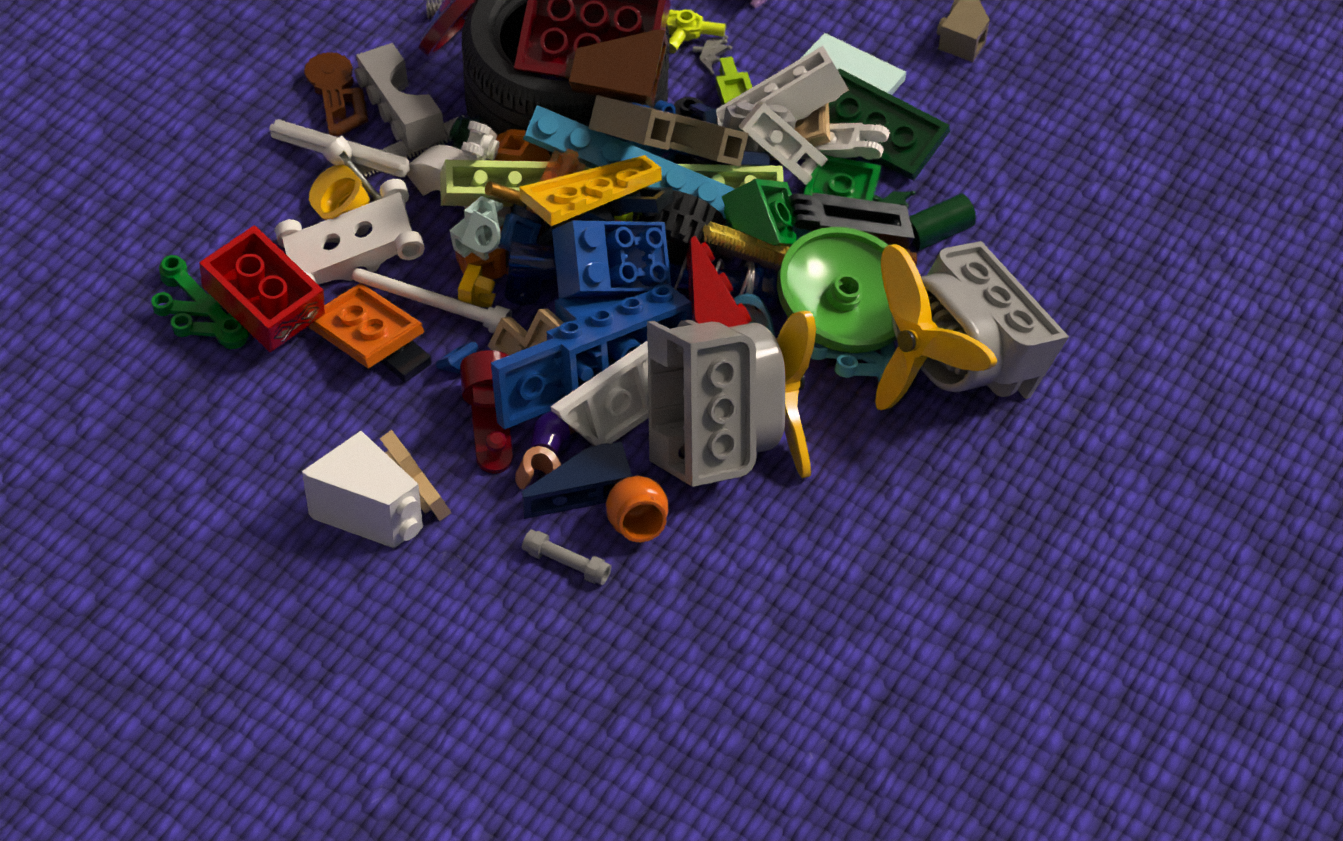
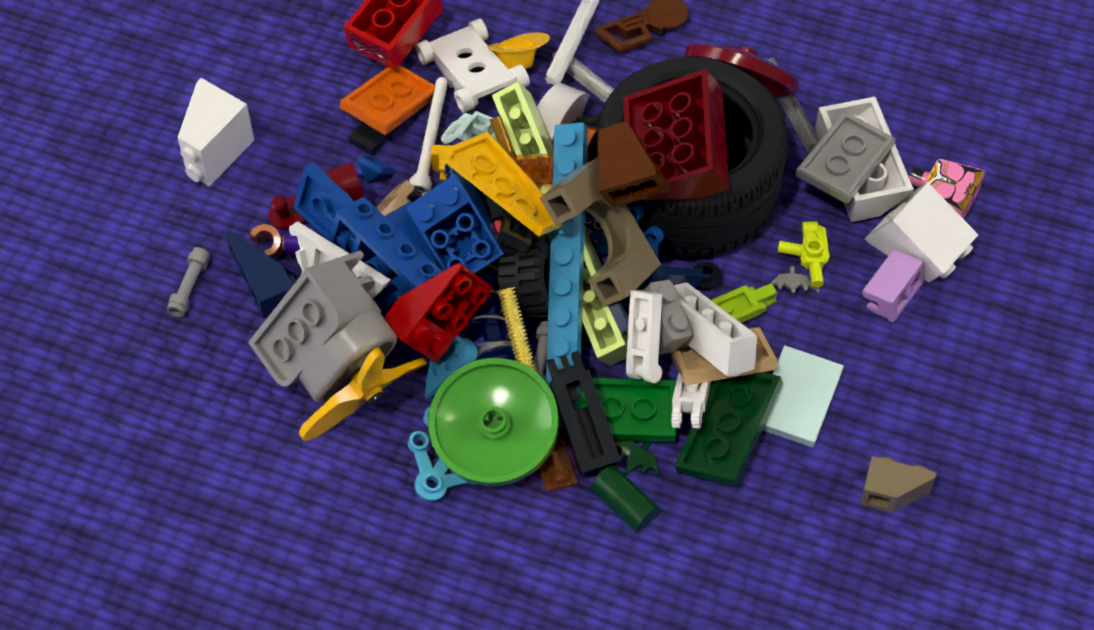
camera: 80 degrees right, 5 degrees up
(340, 153) = (555, 33): hinge -> none
(412, 117) = (660, 45): light grey arch -> none
(429, 496) = (244, 162): tan plate -> none
(480, 143) = (545, 100): white hinge -> none
(637, 508) = (232, 314): orange piece -> none
(762, 211) = (545, 333): green slope -> none
(964, 325) = (454, 516): light grey brick -> none

